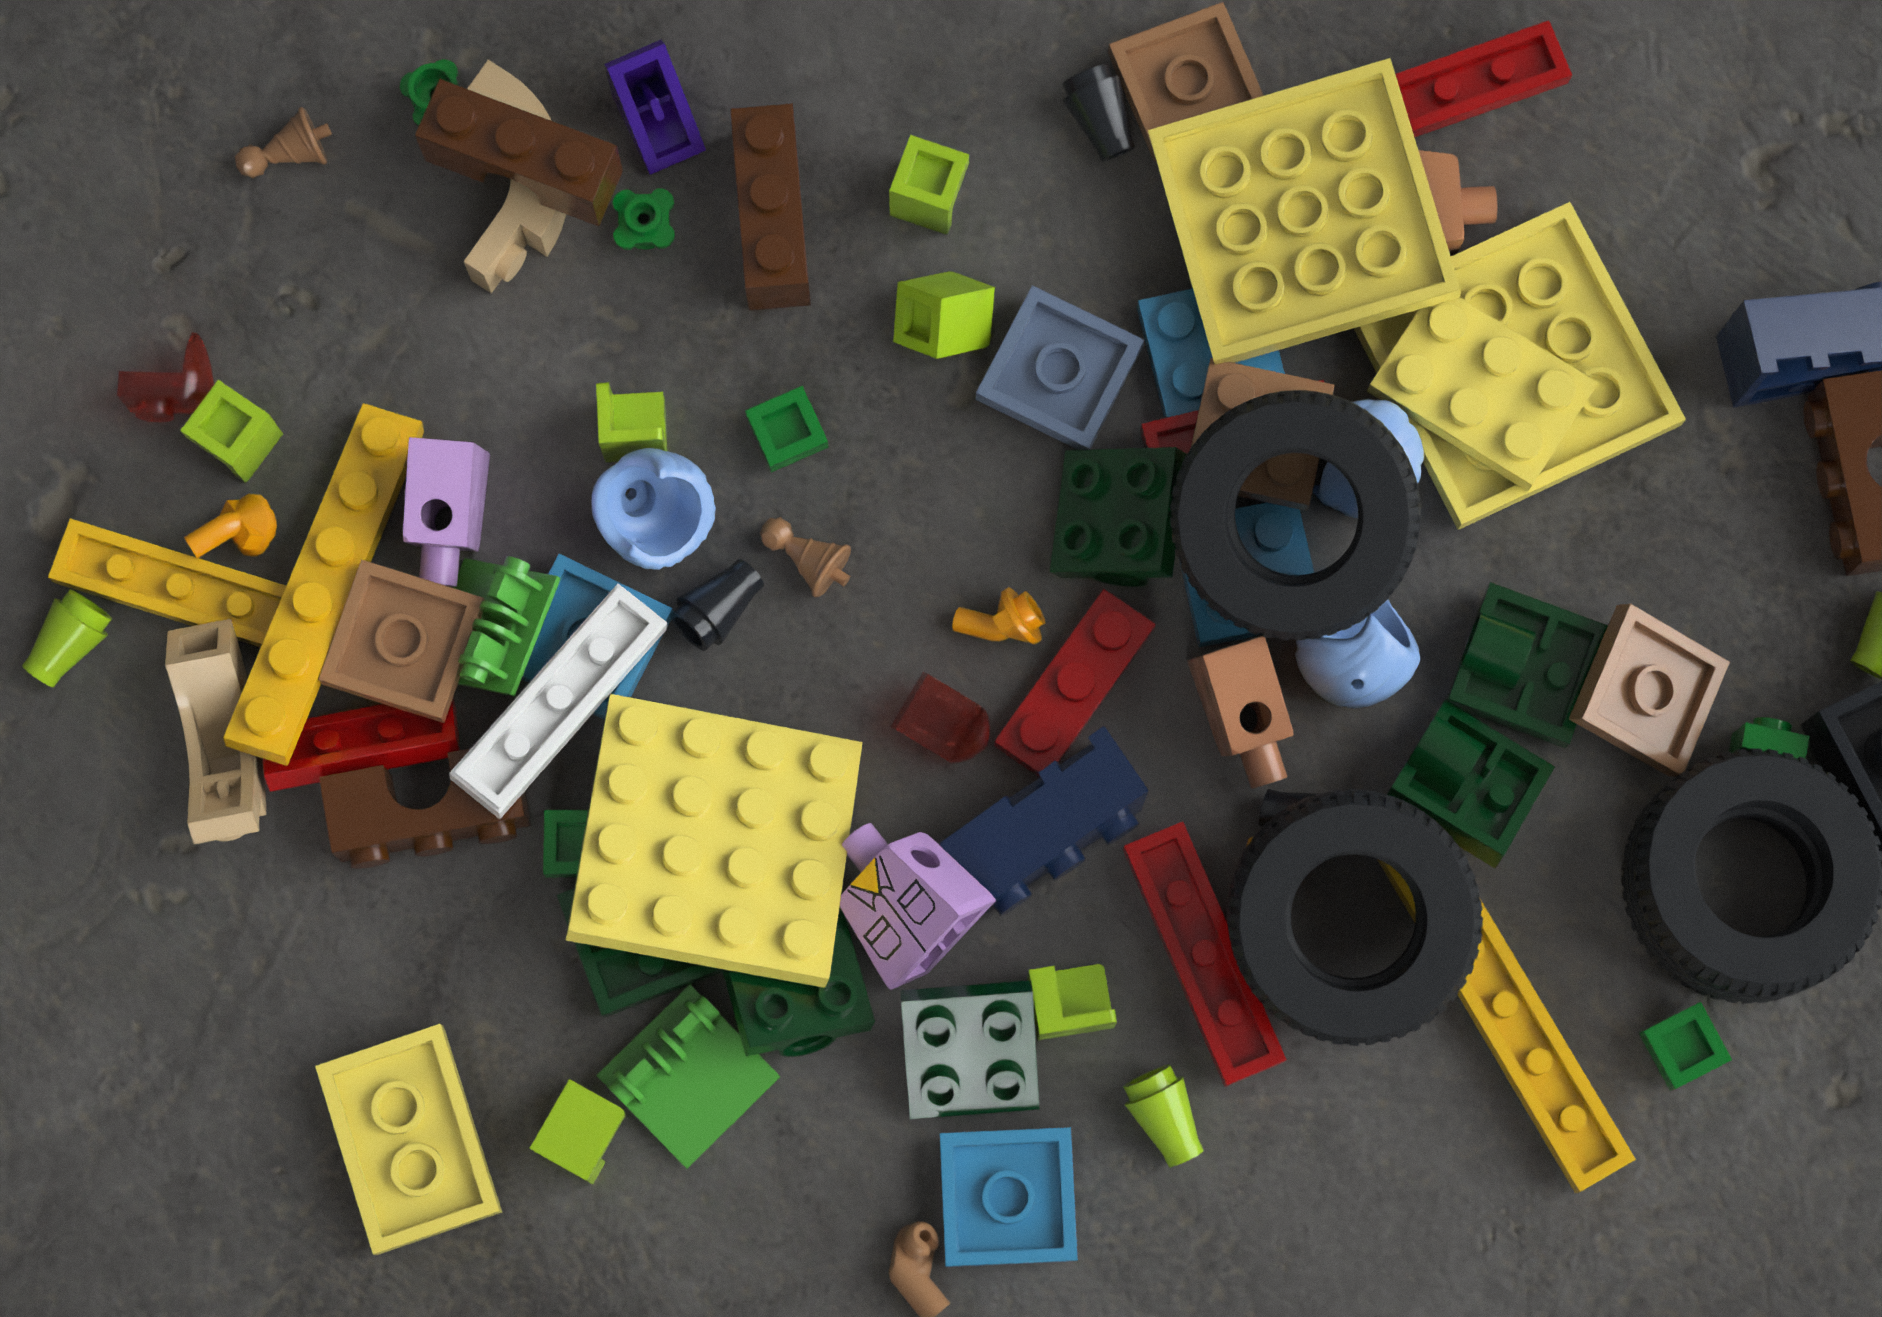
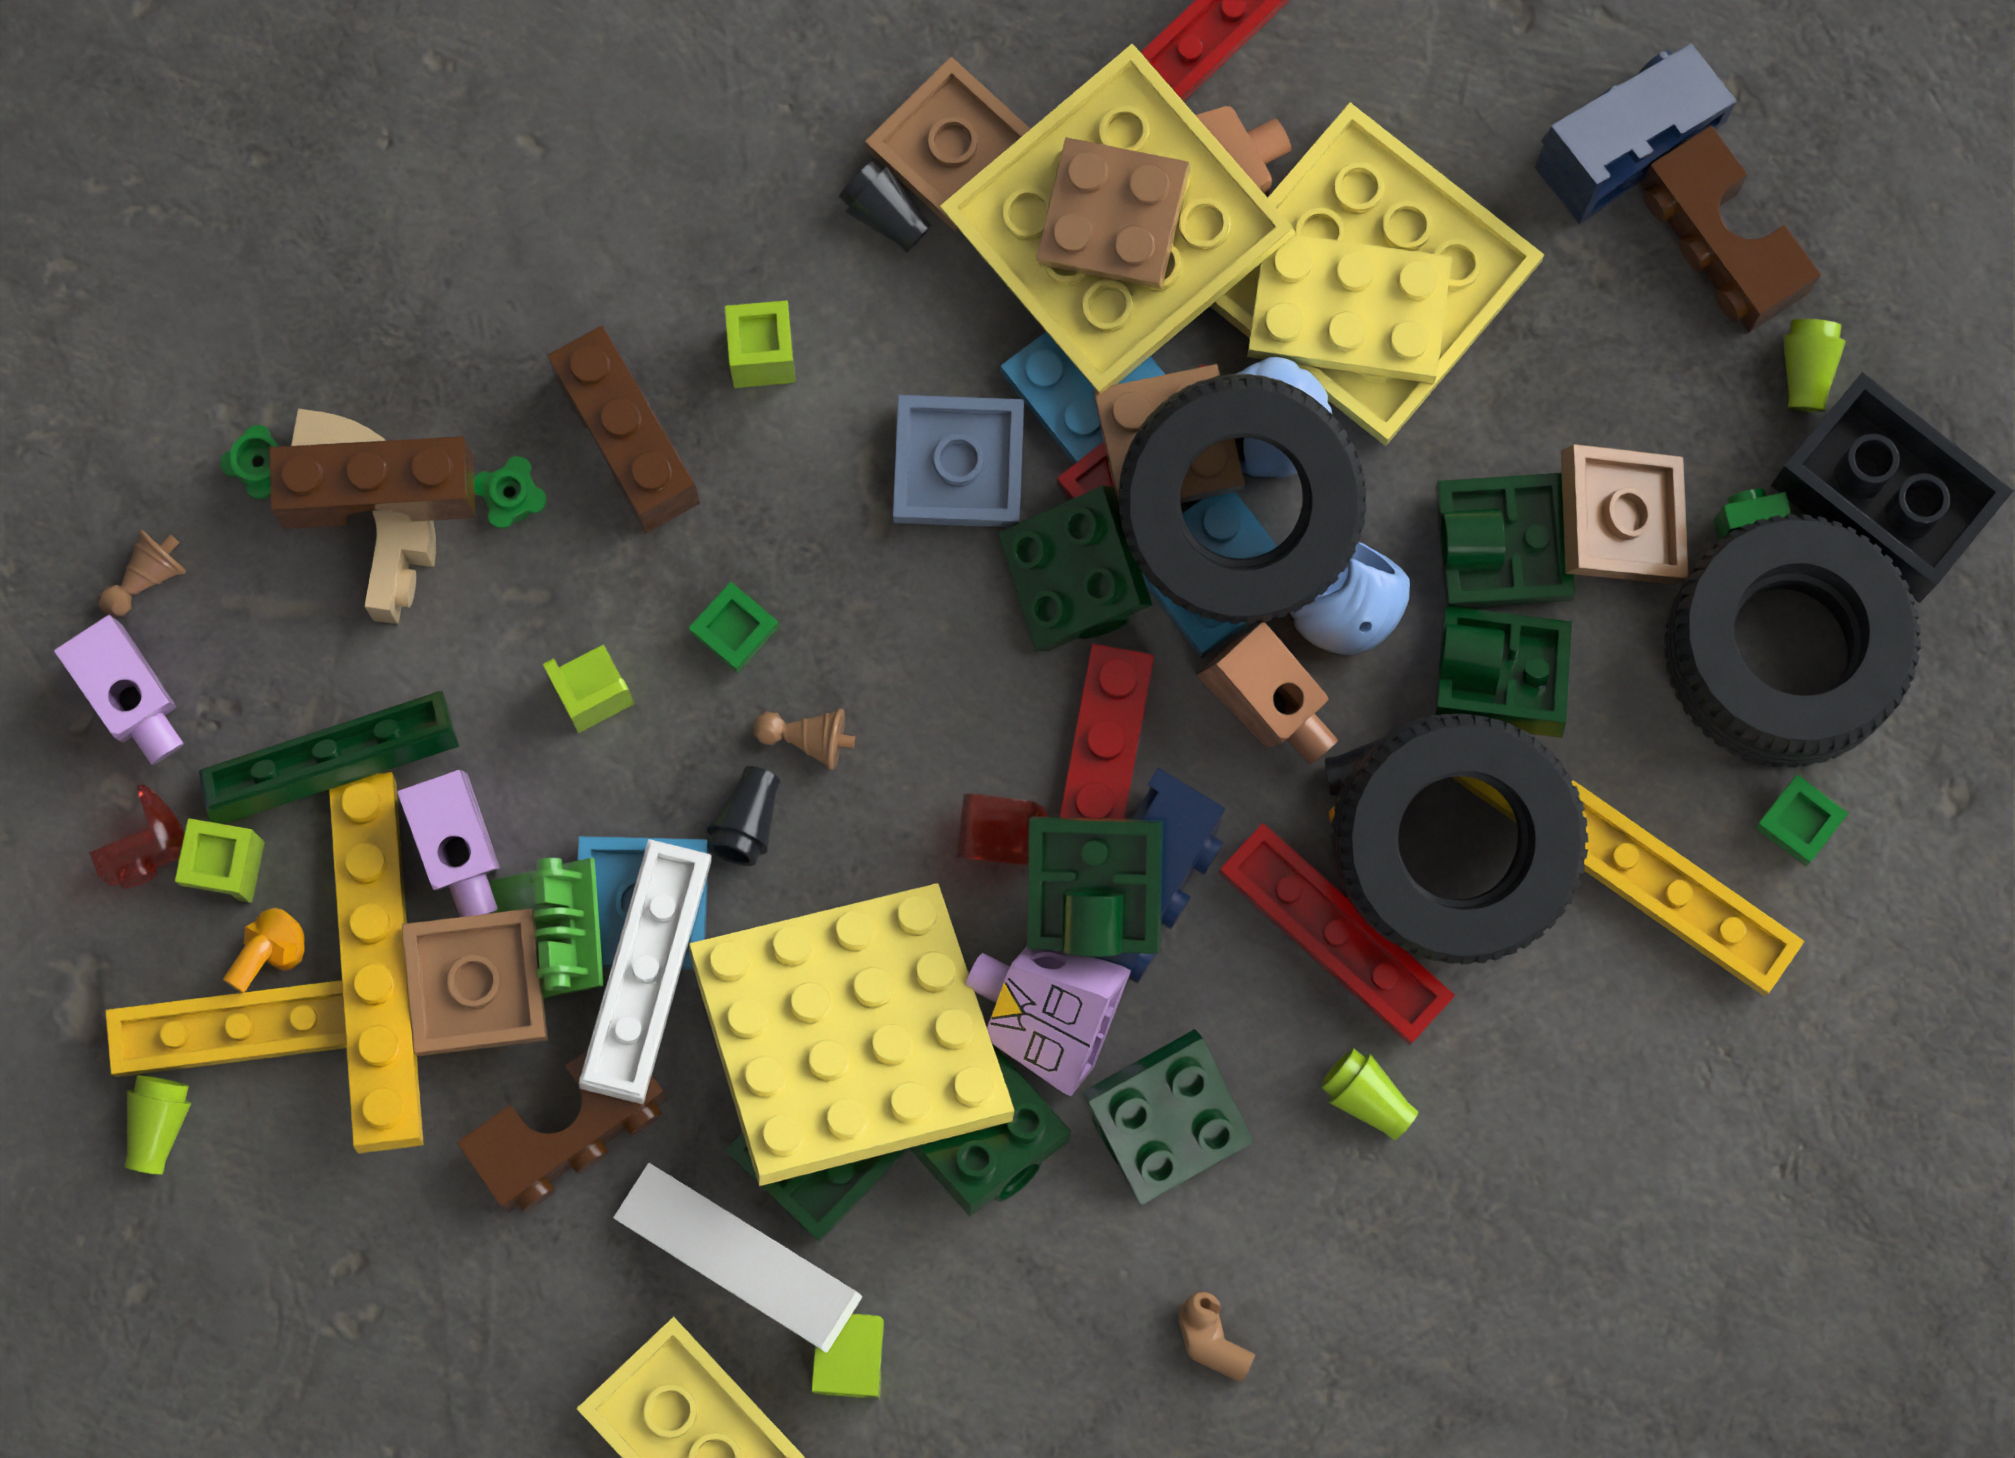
camera: 25 degrees left, 0 degrees up
(207, 682) = (319, 1117): tan arch -> none
(209, 212) = (104, 666): none -> lavender torso
(361, 741) = (479, 1091): red plate -> none
(371, 384) = (328, 758): none -> dark green tile
(521, 997) = (738, 1257): none -> white tile
(563, 842) = (710, 1098): green plate -> none
(654, 106) = (472, 384): dark purple slope -> none
(672, 506) = (656, 755): light blue piece -> none
(688, 1076) = (922, 1259): bright green hinge -> none
(943, 314) = (829, 457): lime panel -> none
(997, 807) = (1095, 885): none -> dark green plate
(1008, 1197) = (1263, 1234): dark azure plate -> none
(1016, 618) = (1025, 707): light orange plate -> none
(1070, 1001) = (1238, 1030): lime panel -> none
(1301, 204) = (1113, 213): none -> medium nougat plate

